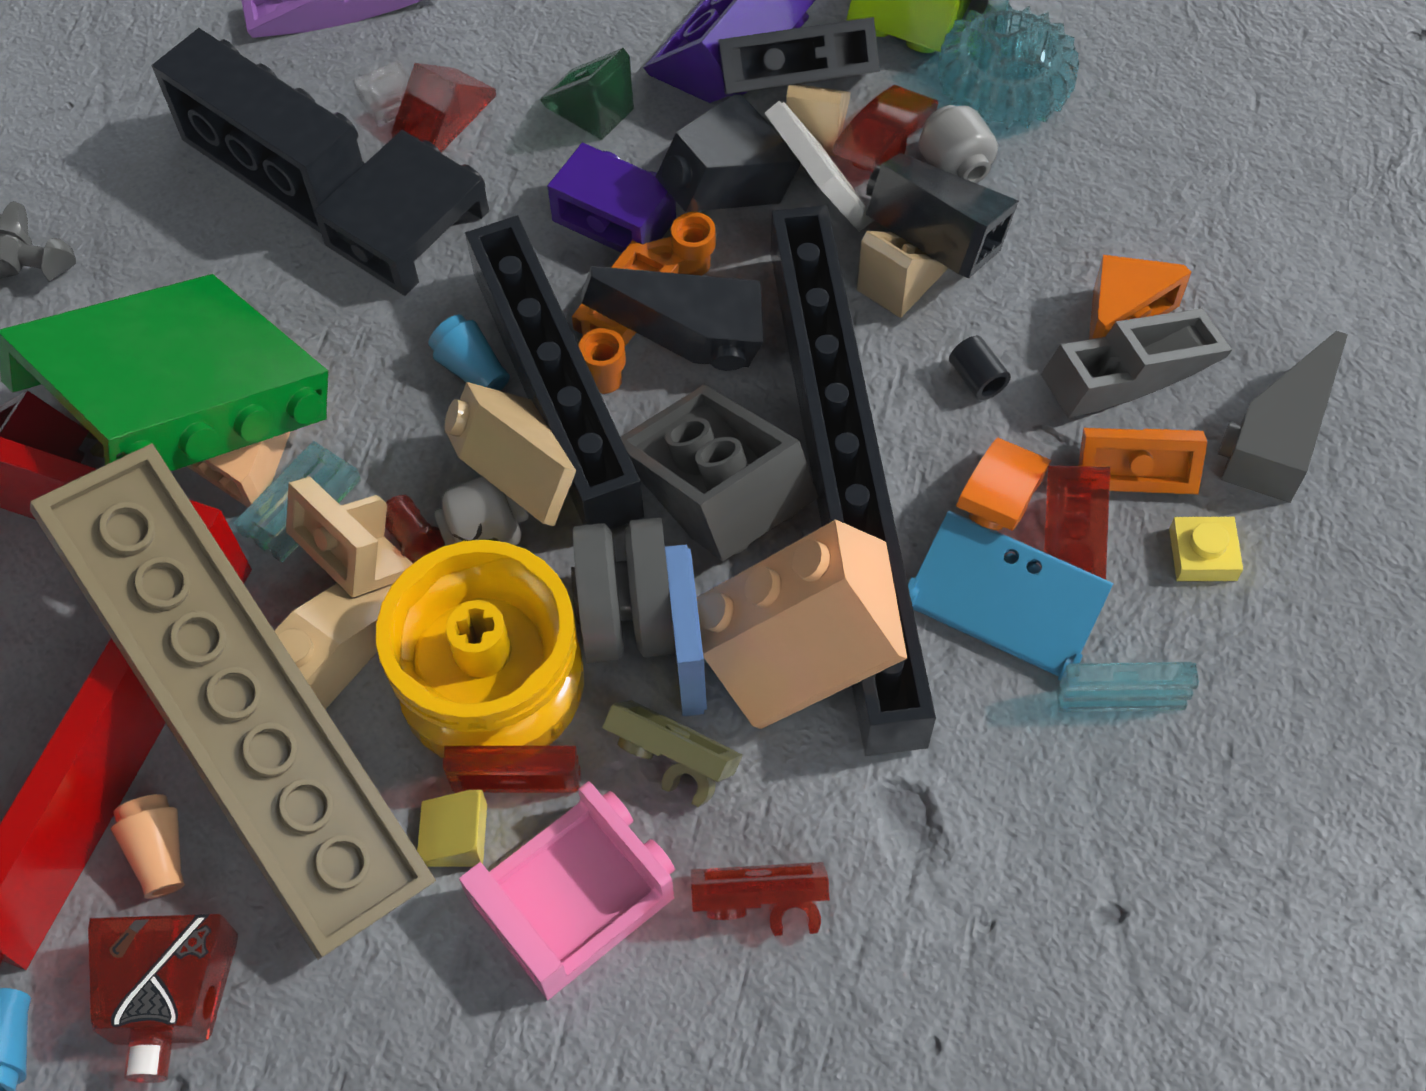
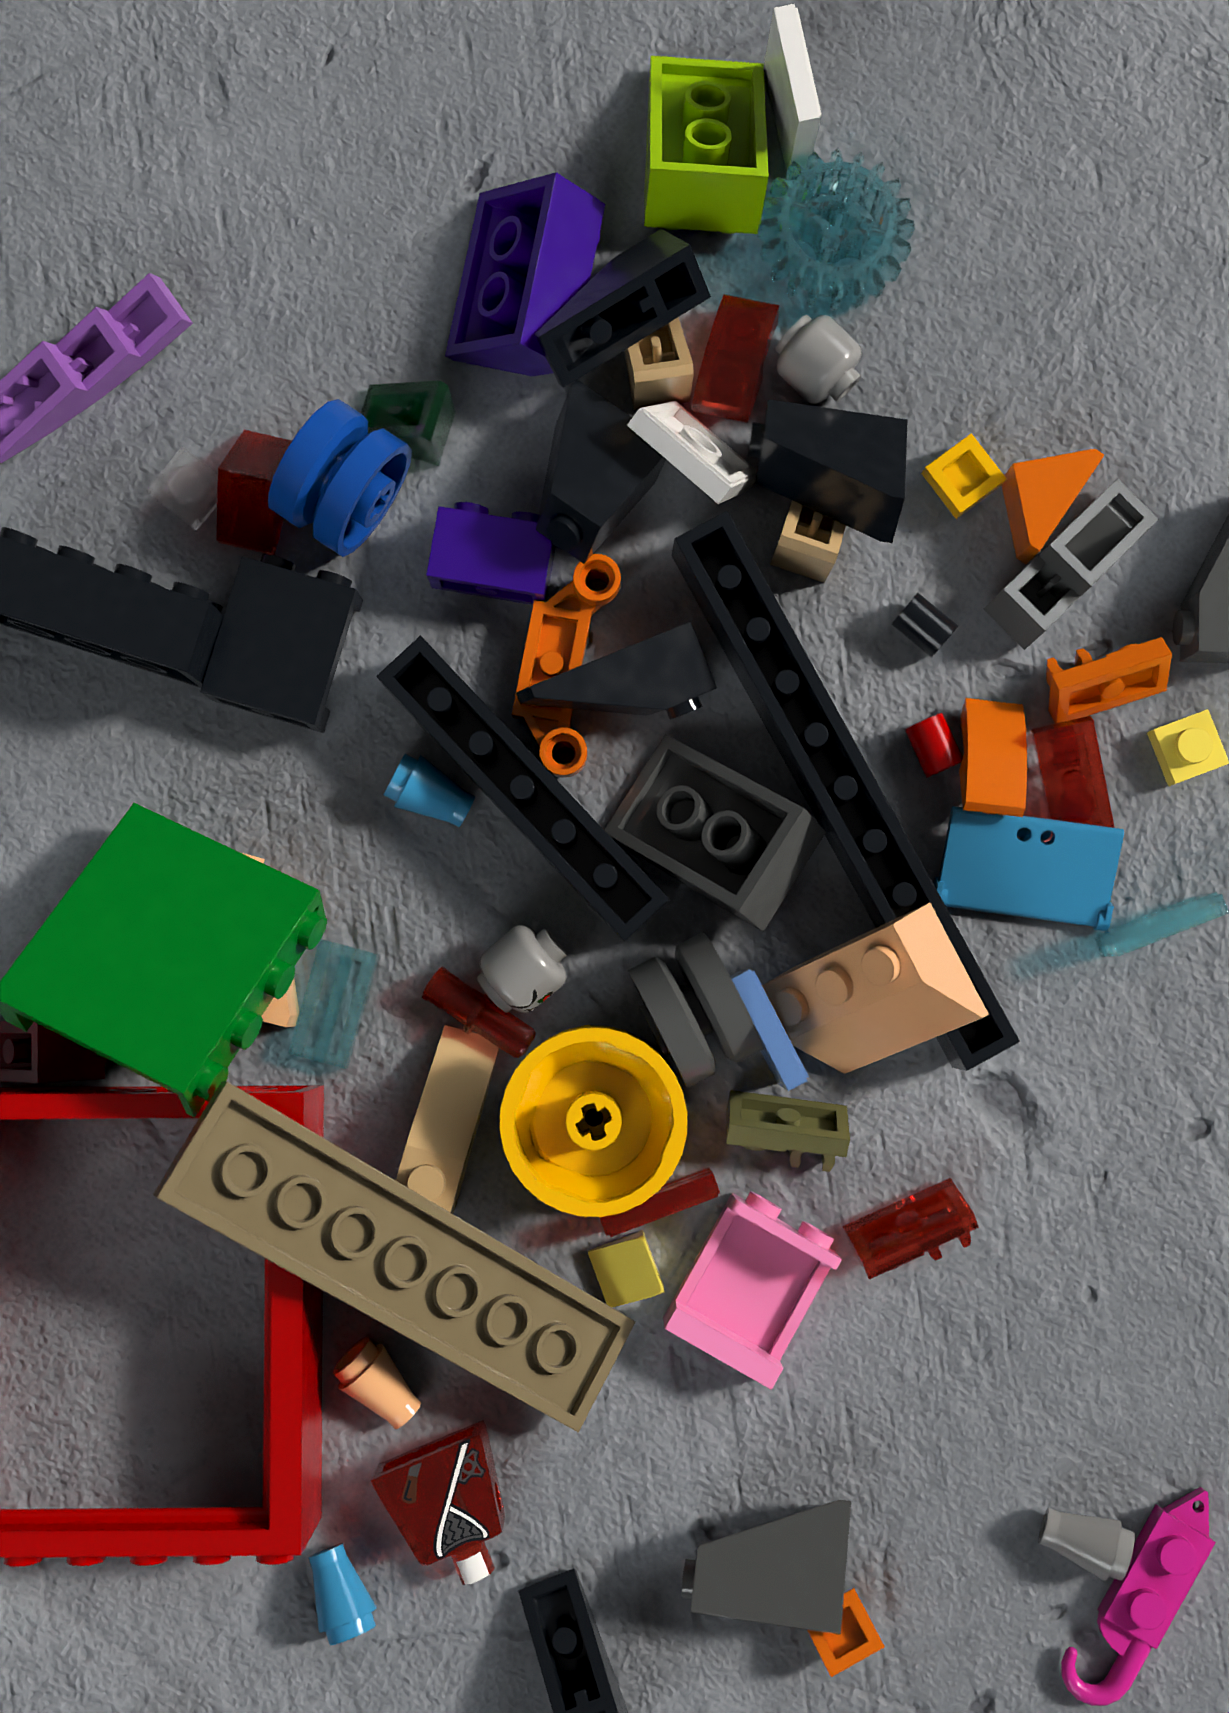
camera: 25 degrees left, 25 degrees up
(344, 537) = (411, 1042): tan panel -> none
(509, 98) = (339, 477): none -> blue wheel
(511, 448) = (531, 904): tan slope -> none
(951, 463) = (934, 745): none -> red hinge
(1058, 266) = (963, 476): none -> yellow plate

